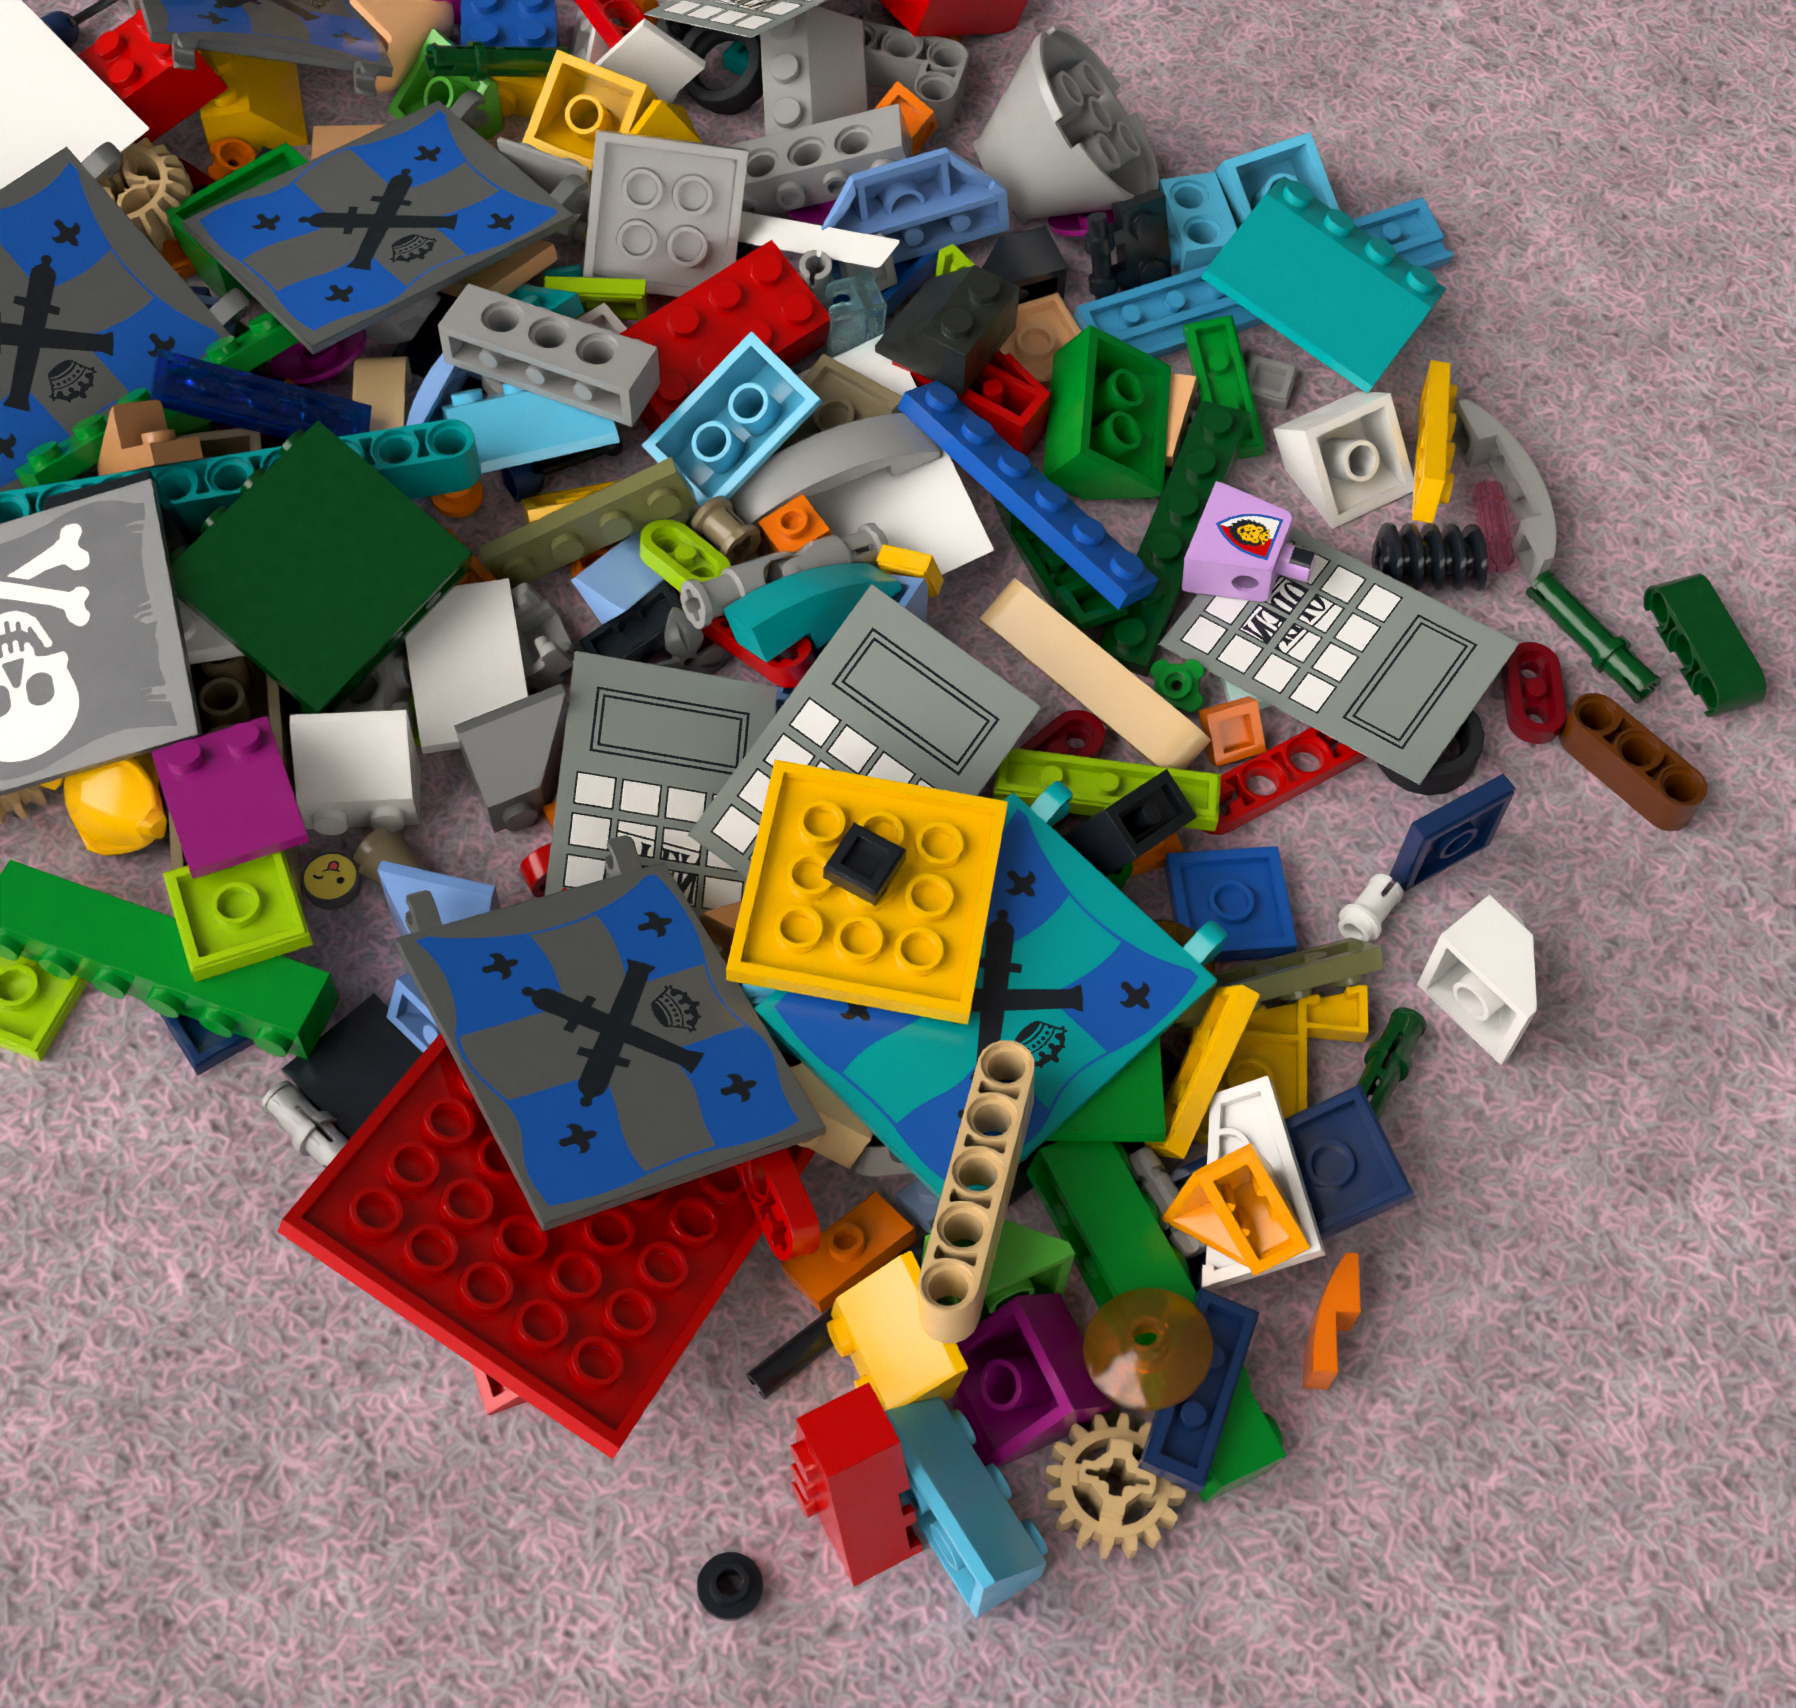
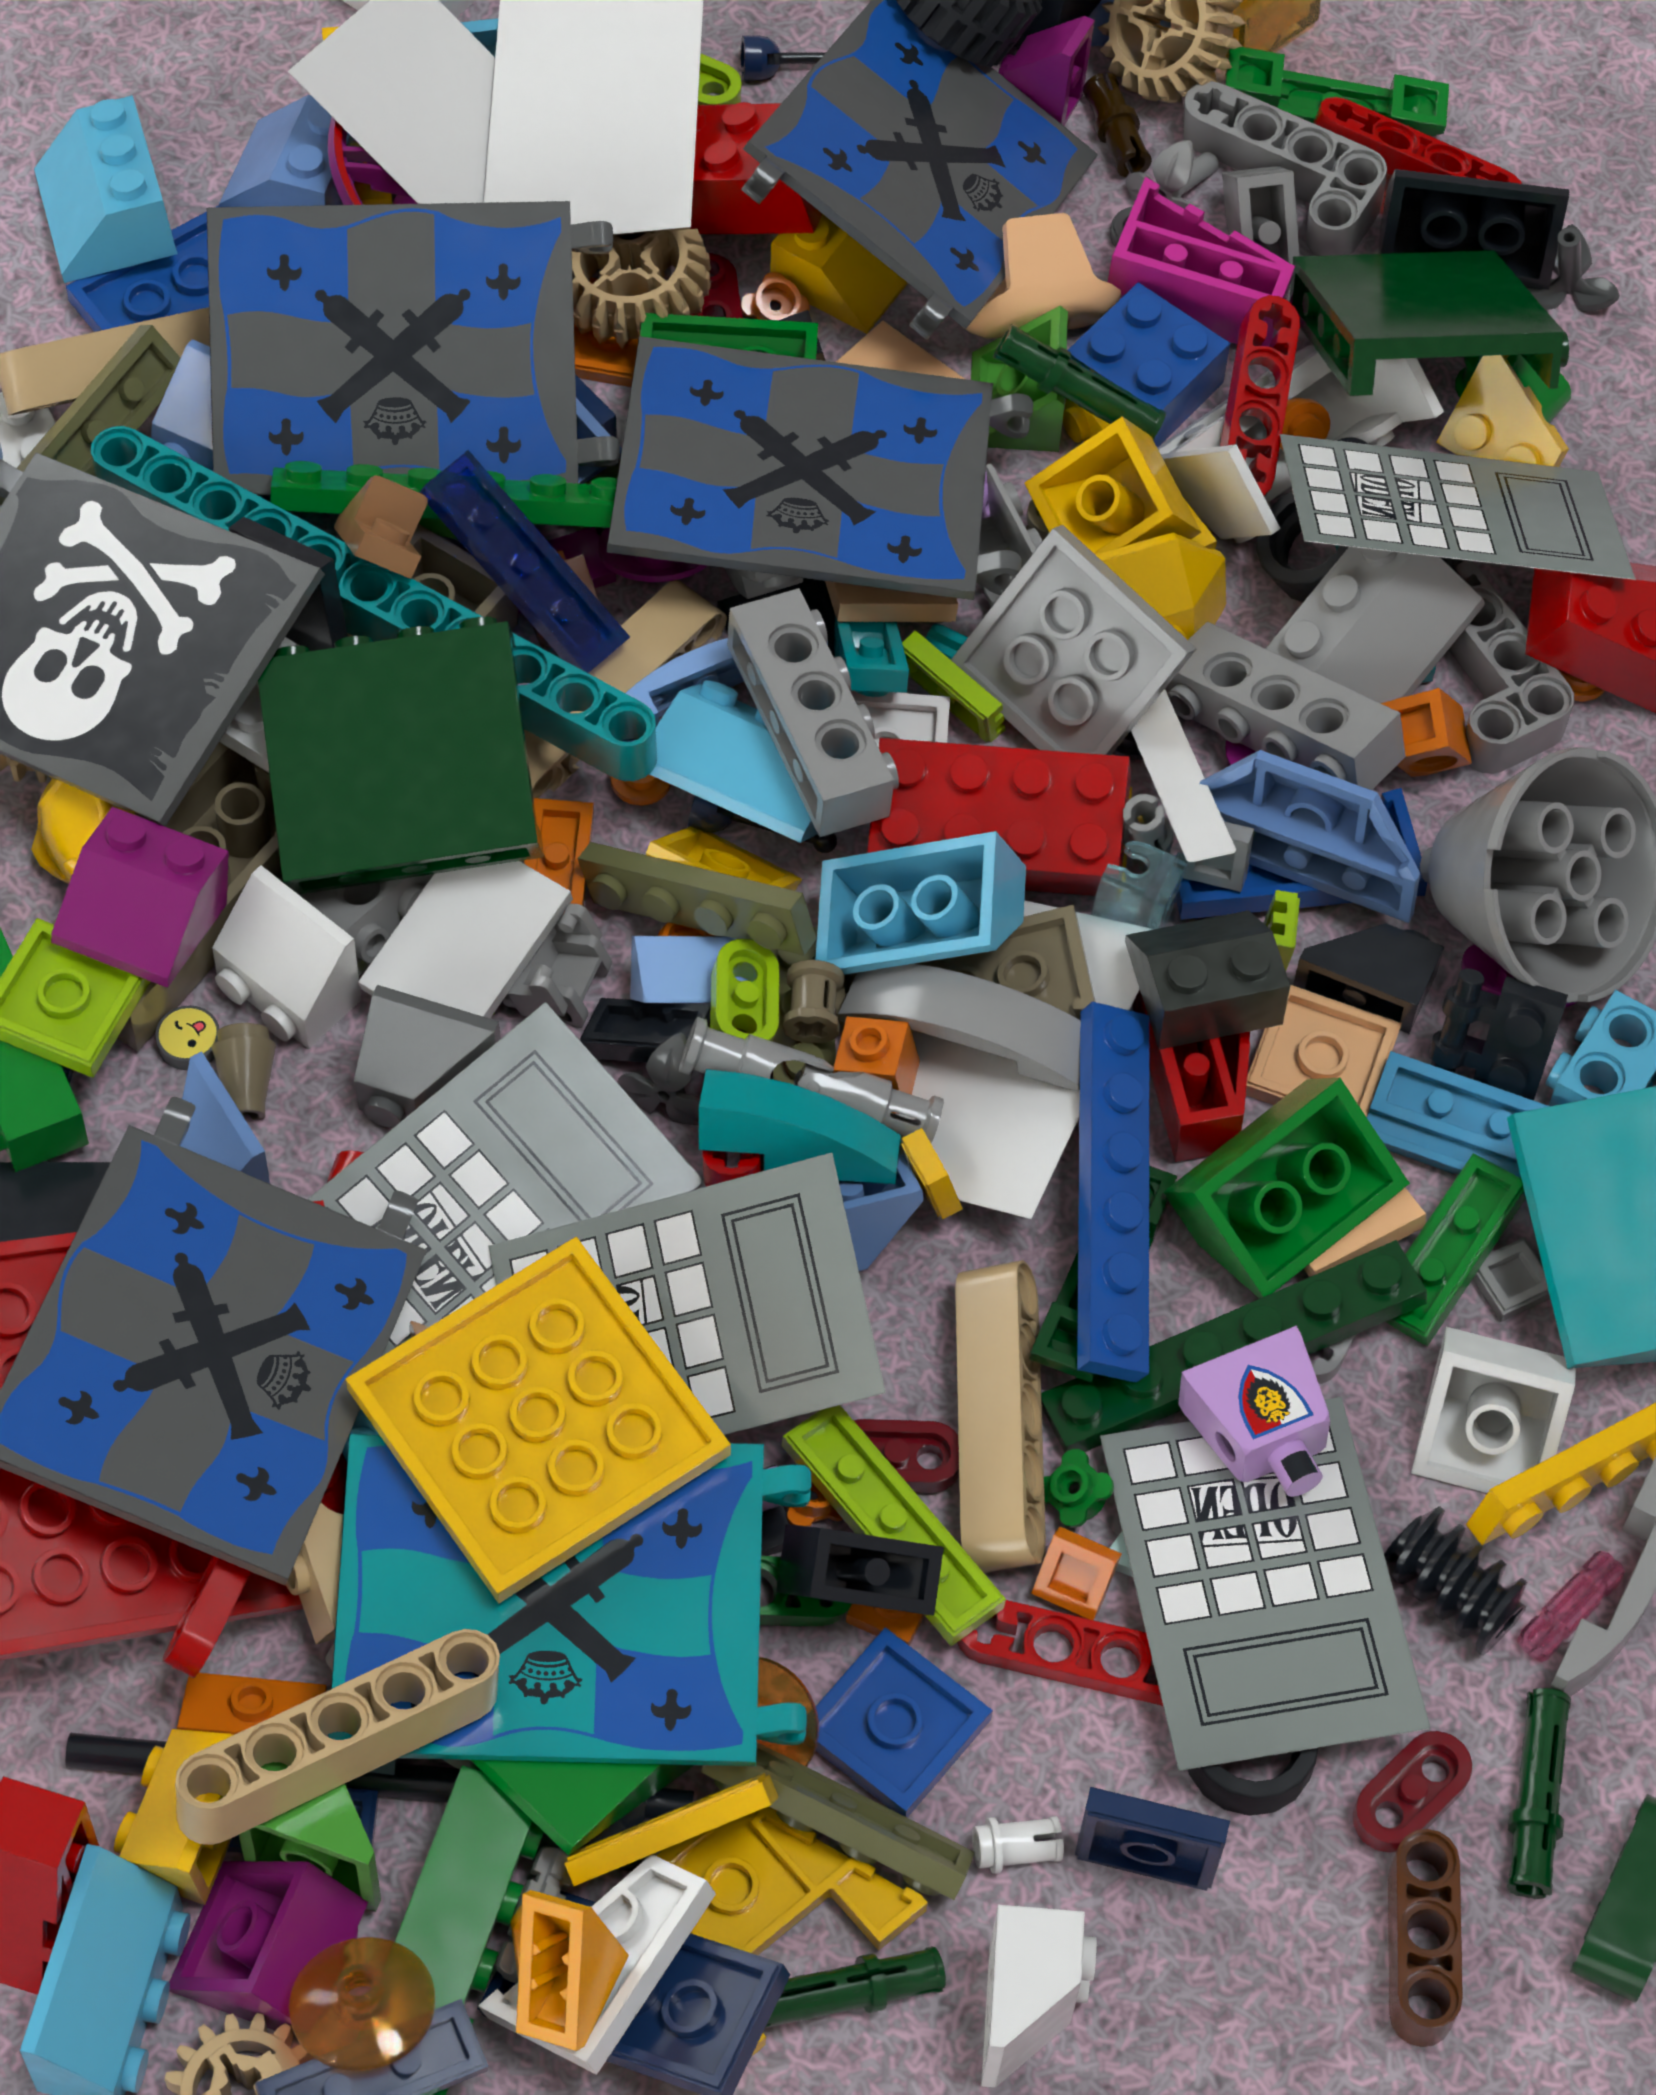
camera: 45 degrees right, 0 degrees up
(864, 863) = (546, 1389): black tile -> none

